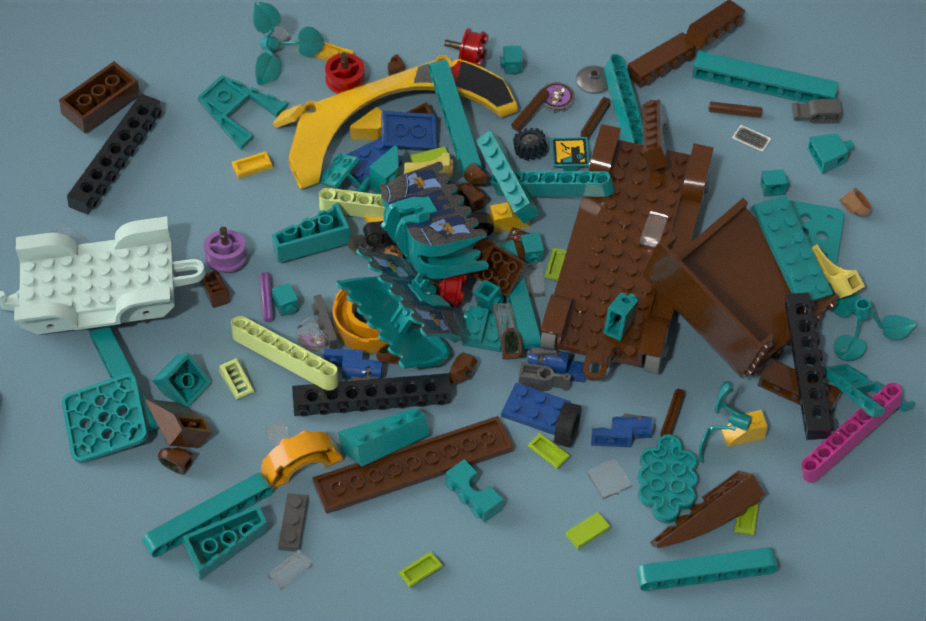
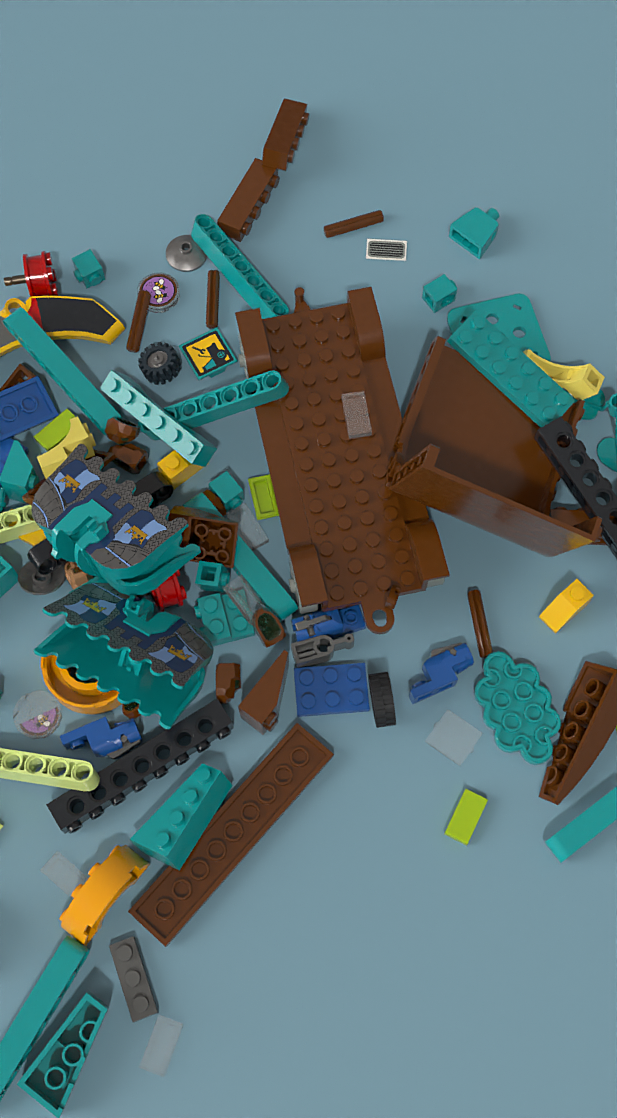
camera: 25 degrees left, 15 degrees up
(324, 323) = (43, 702): dark grey plate -> none
(420, 569) = (309, 965): lime tile -> none
(482, 503) = (297, 828): teal arch -> none
(485, 386) = (263, 702): none -> reddish brown slope
(515, 234) = (201, 482): reddish brown tile -> none
(548, 450) = (371, 737): lime tile -> none
(625, 307) = (381, 538): teal torso -> none
(653, 140) = (295, 297): reddish brown arch -> none
(737, 418) = (561, 604): teal plant -> none
(762, 78) = (367, 175): teal brick -> none
(818, 111) = (440, 188): dark grey piece -> none
(856, 203) = (534, 279): medium nougat rock -> none

